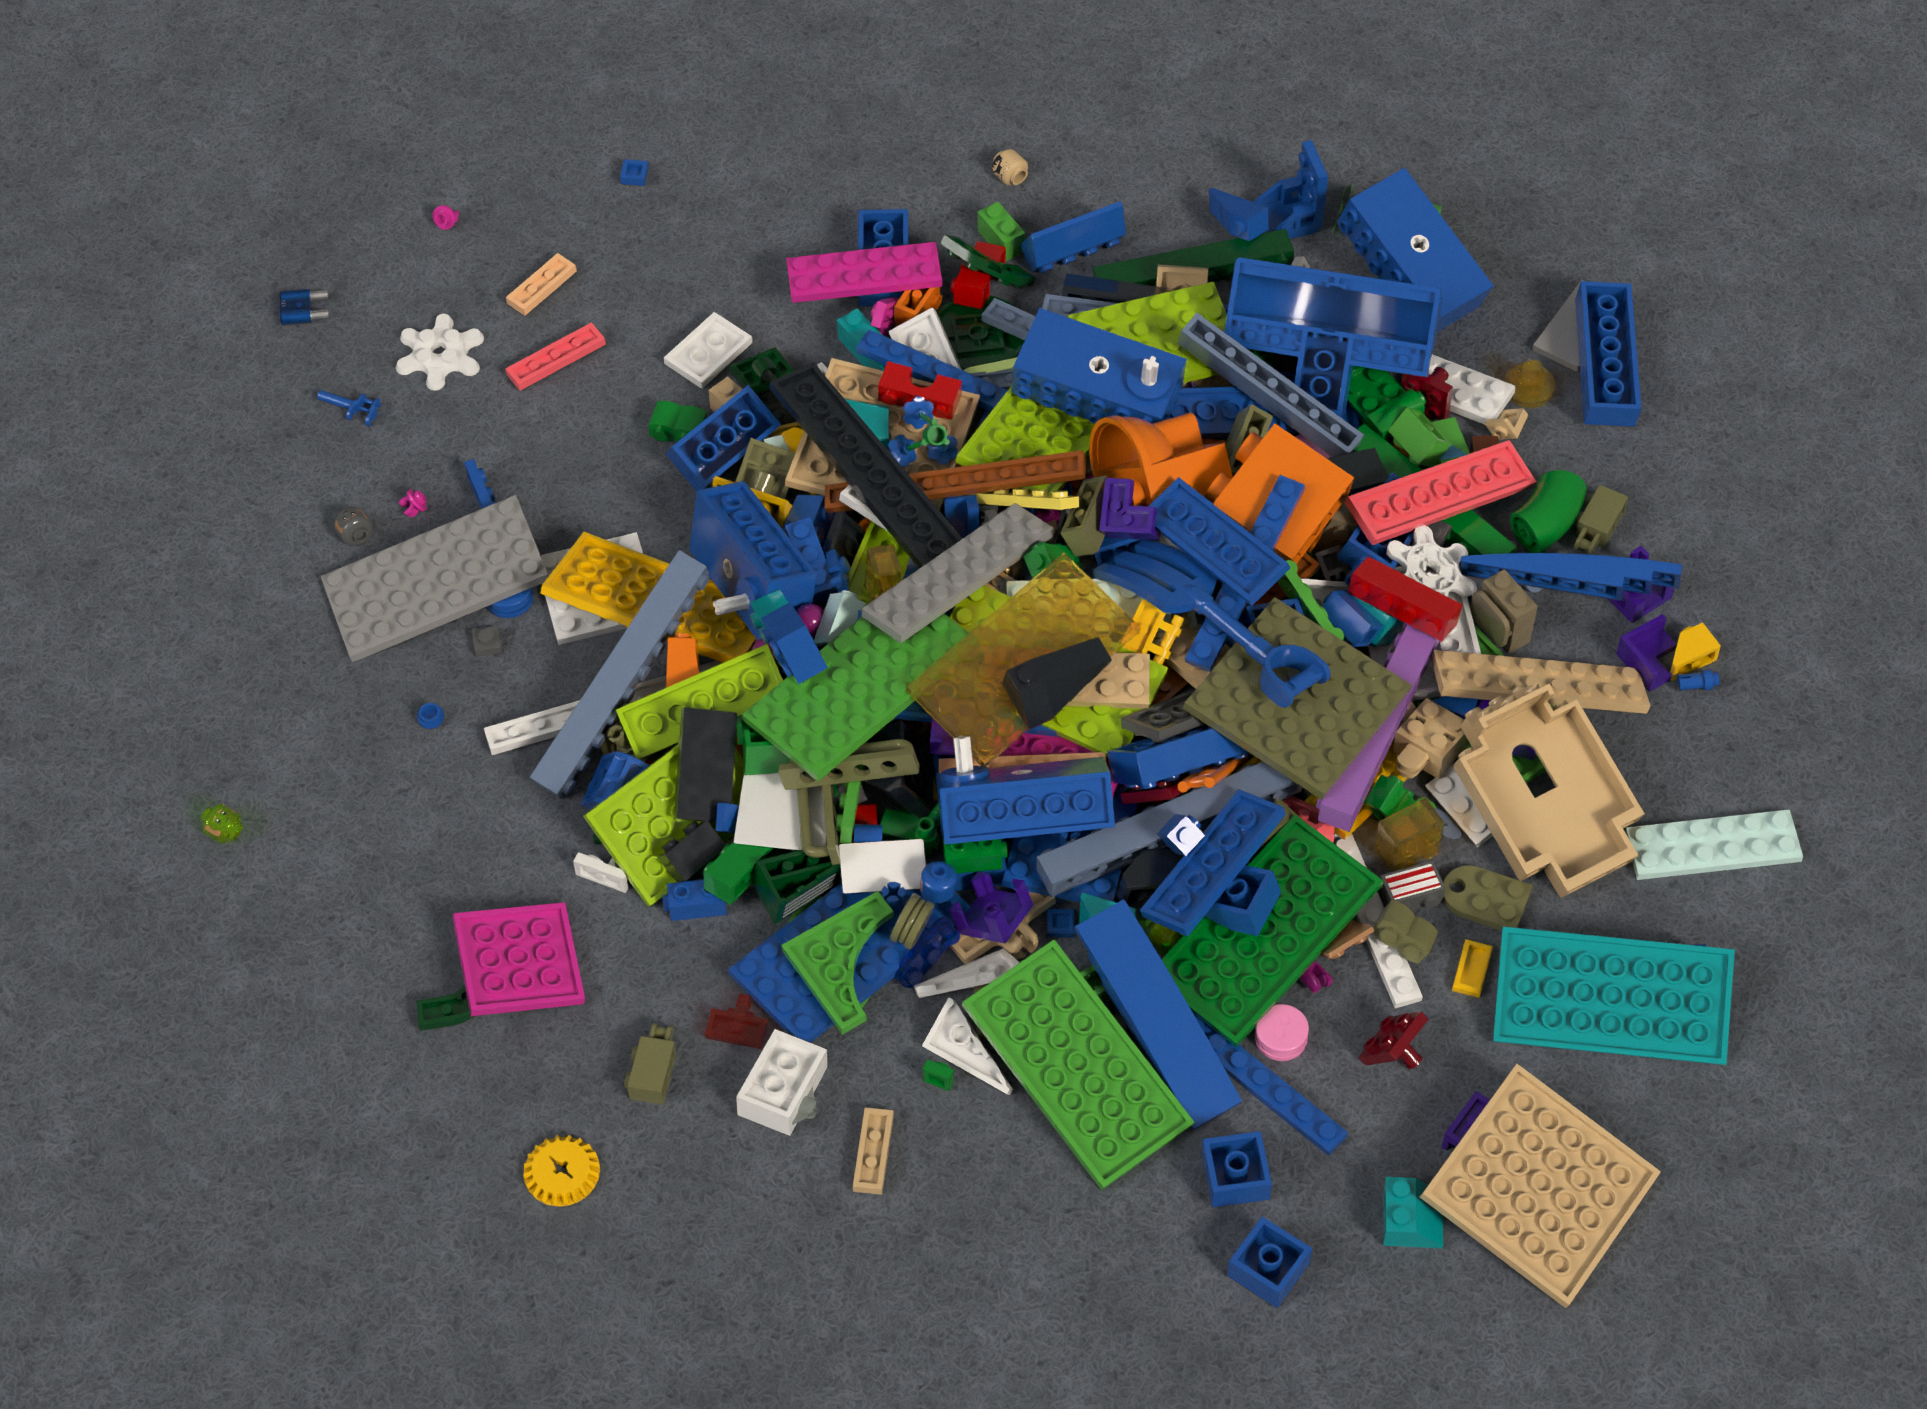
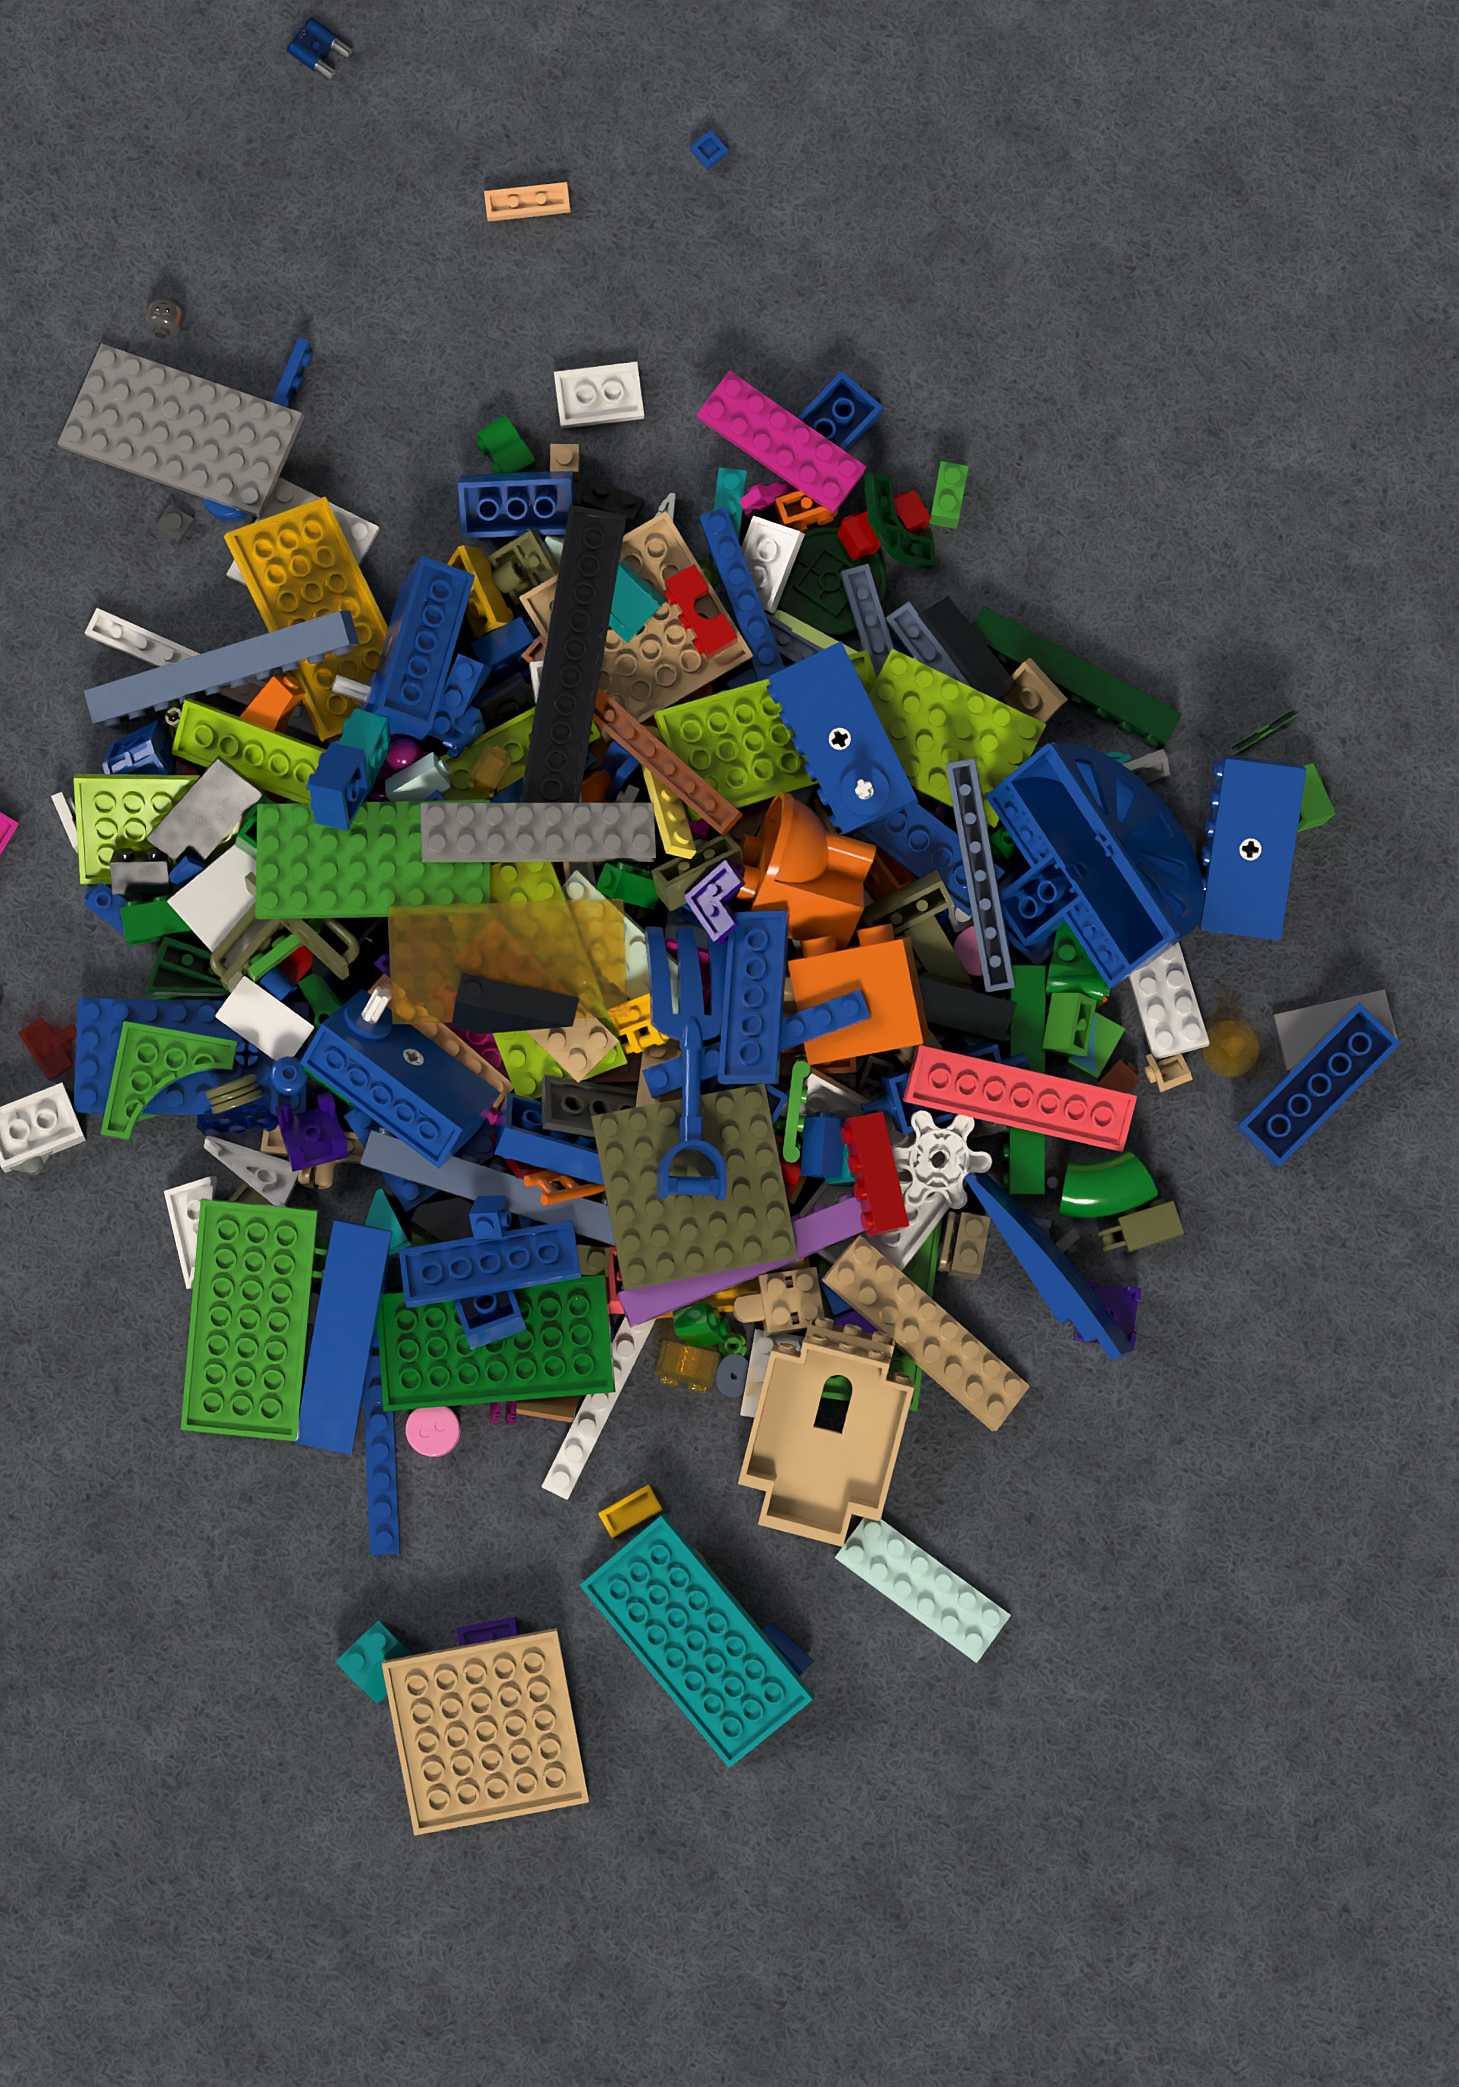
camera: 40 degrees right, 25 degrees up
(352, 405) = (270, 188): blue piece -> none
(416, 501) = (235, 337): dark pink plate -> none
(430, 716) = (71, 556): blue plate -> none
(439, 365) = (391, 214): white plate -> none
(445, 217) = (510, 57): dark pink plate -> none
(555, 356) = (472, 289): coral plate -> none
(760, 370) = (618, 460): dark green plate -> none
(873, 1151) = (49, 1243): tan plate -> none
(938, 1074) = (153, 1226): green plate -> none
(940, 445) = (661, 679): blue plant -> none
(1010, 167) = (1024, 432): tan head -> none
(1061, 923) = (366, 1183): blue tile -> none
(1075, 238) = (997, 559): blue slope -> none
(1236, 1169) = (284, 1508): blue brick -> none
(1238, 215) = (1155, 672): blue slope -> none
(1269, 1262) = (235, 1601): blue brick -> none
(1299, 200) = (1212, 692): blue bracket -> none
(1394, 1040) = (502, 1519): dark red plate -> none
(1405, 931) = (601, 1440): olive brick -> none
(1414, 886) = (650, 1407): brick -> none
(1435, 391) = (1126, 995): dark red plate -> none
(1486, 897) = (703, 1467): olive plate -> none
(1642, 651) = (1048, 1374): dark purple panel -> none
(1694, 650) = (1087, 1412): yellow slope -> none
(1704, 679) = (1070, 1445): blue animal -> none

